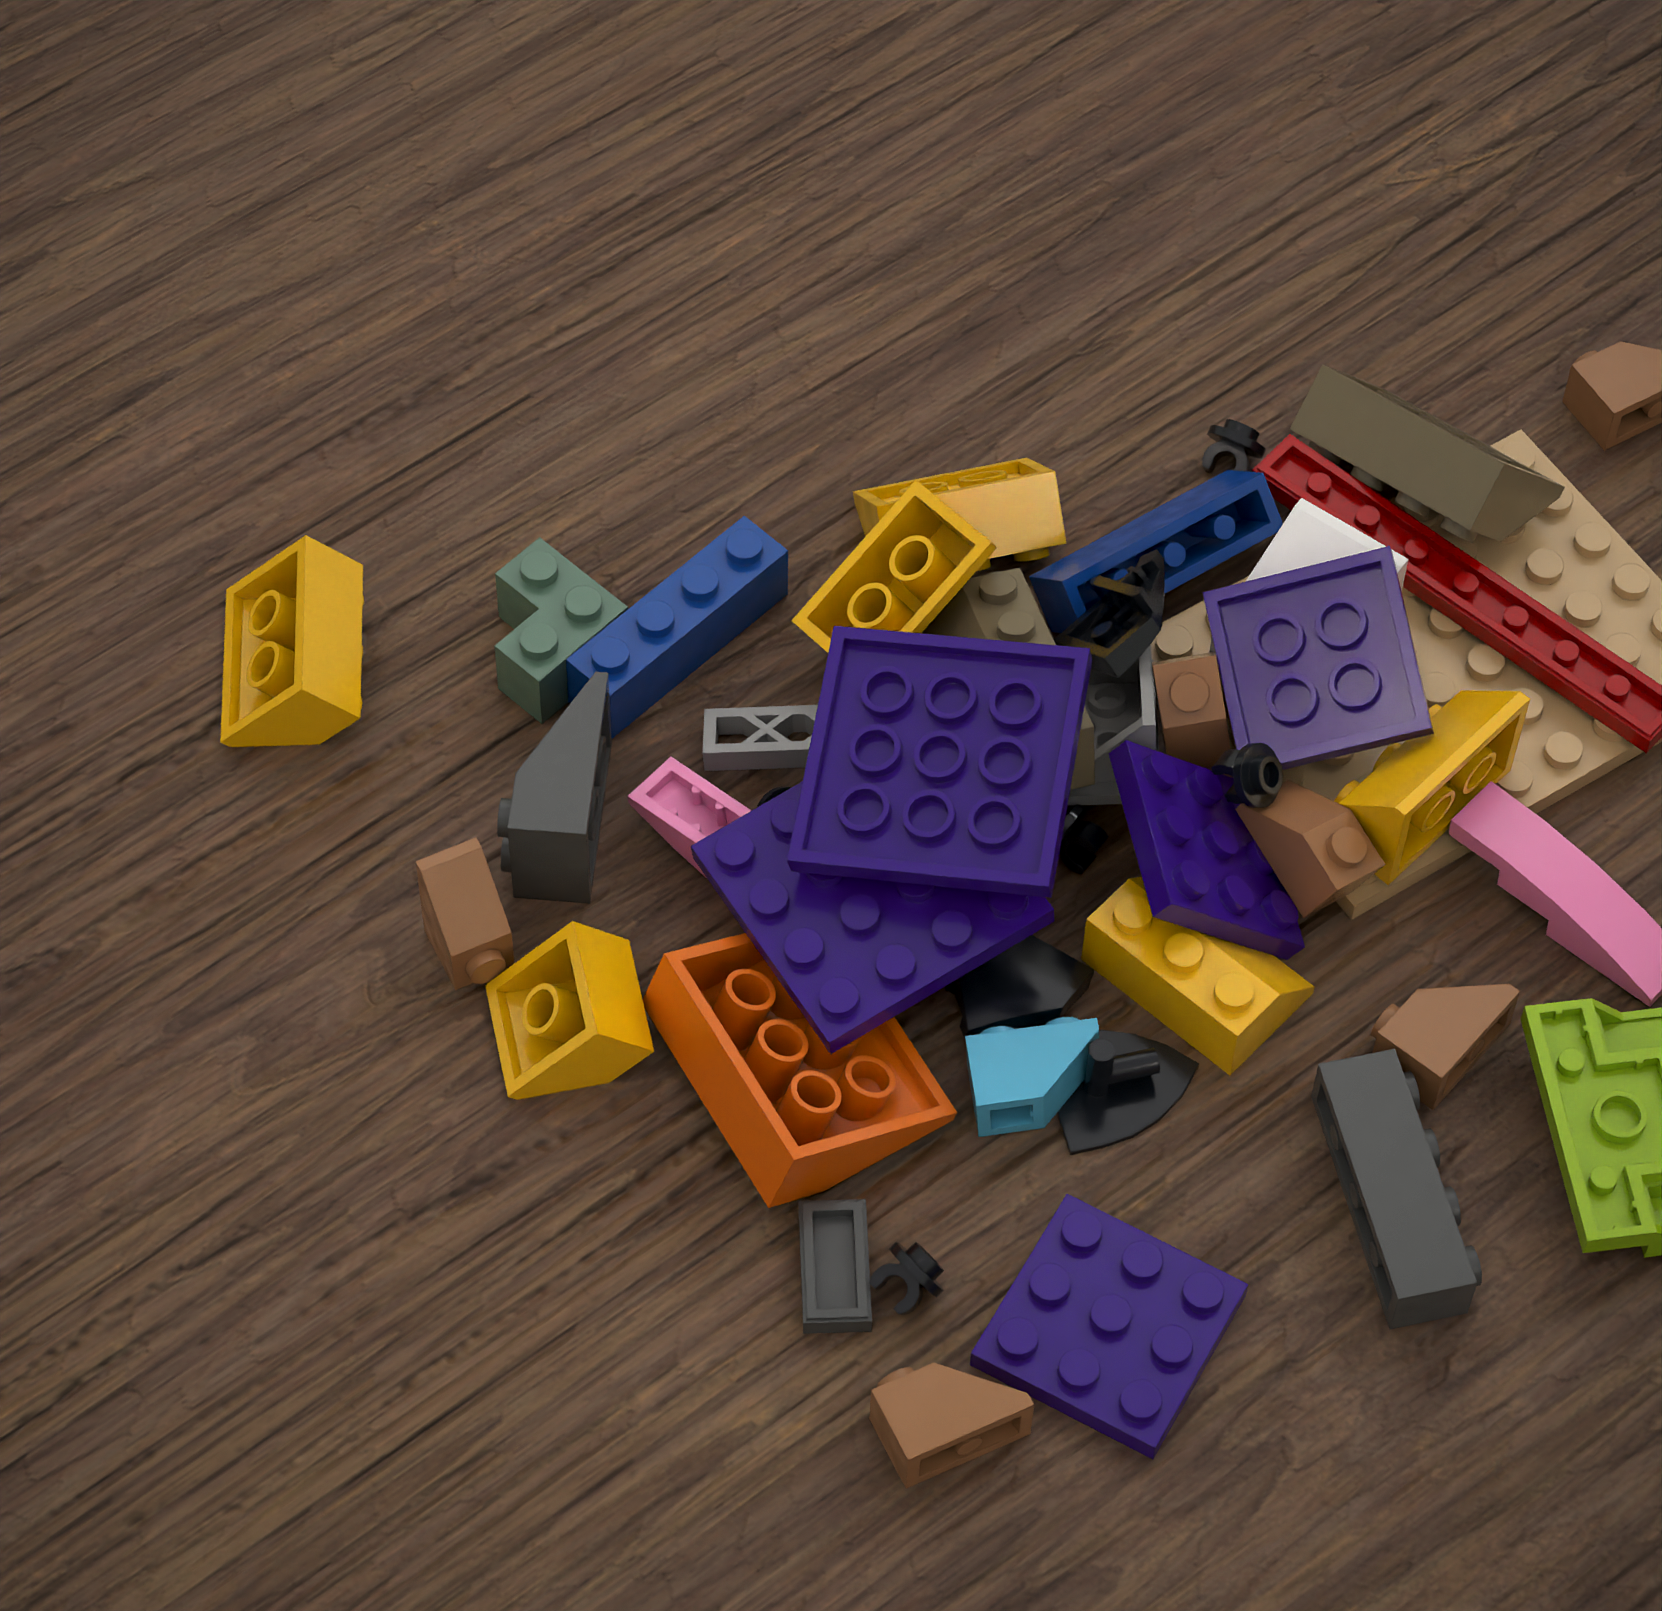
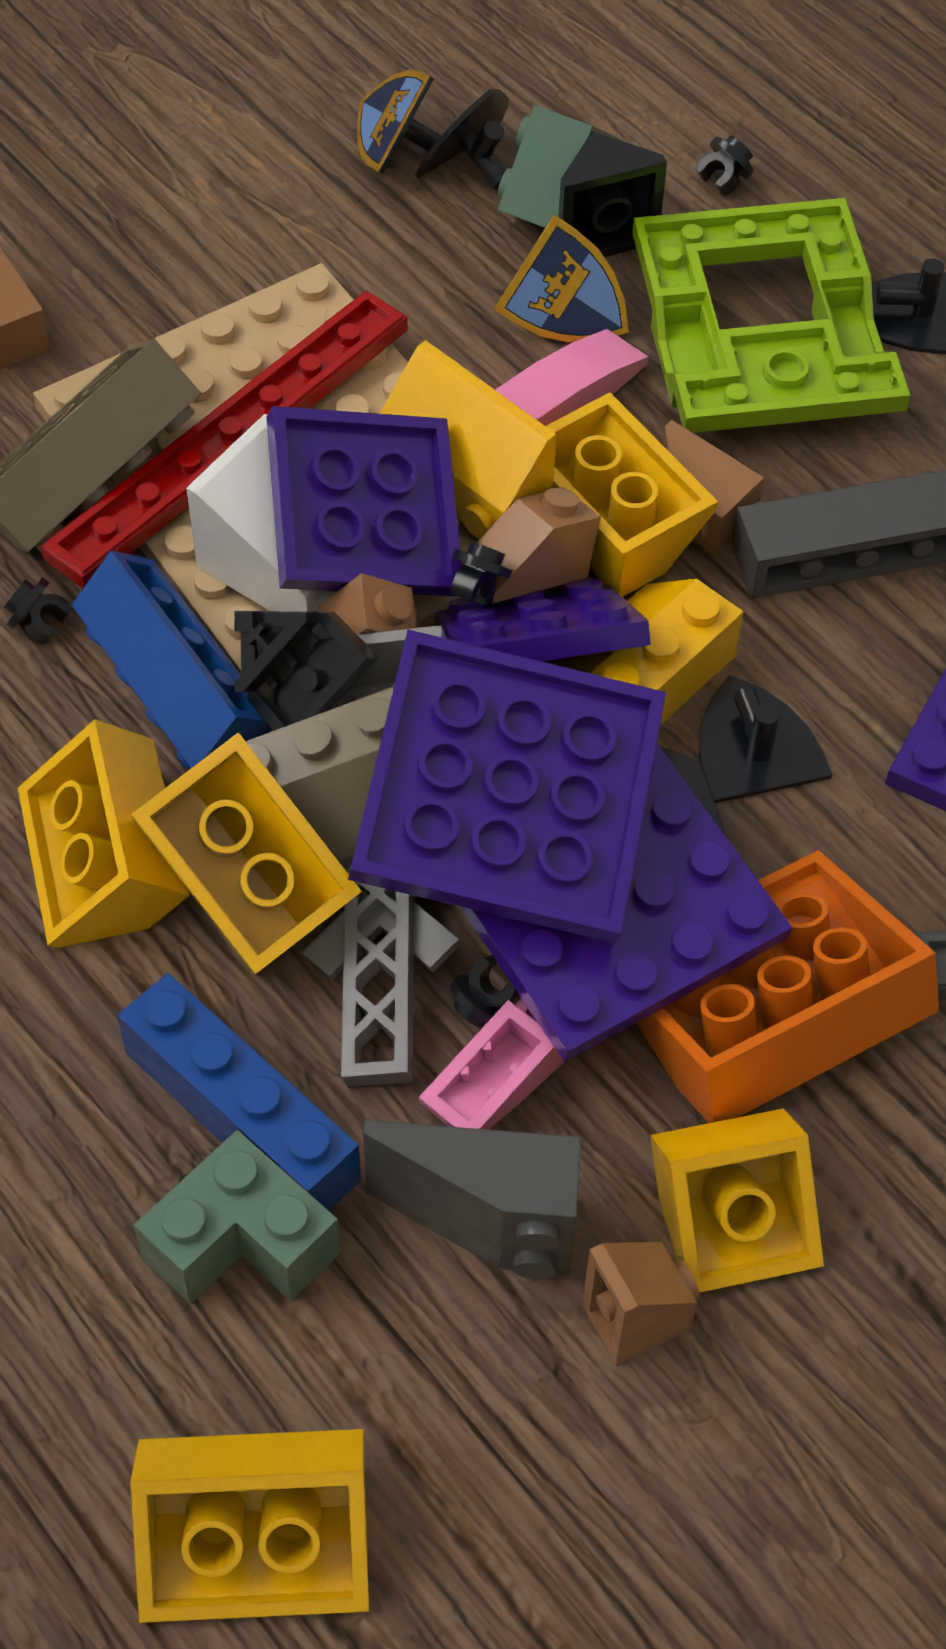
camera: 90 degrees left, 0 degrees up
(1026, 1072) = (775, 791): medium azure slope -> none
(1407, 927) = (636, 487): none -> yellow slope

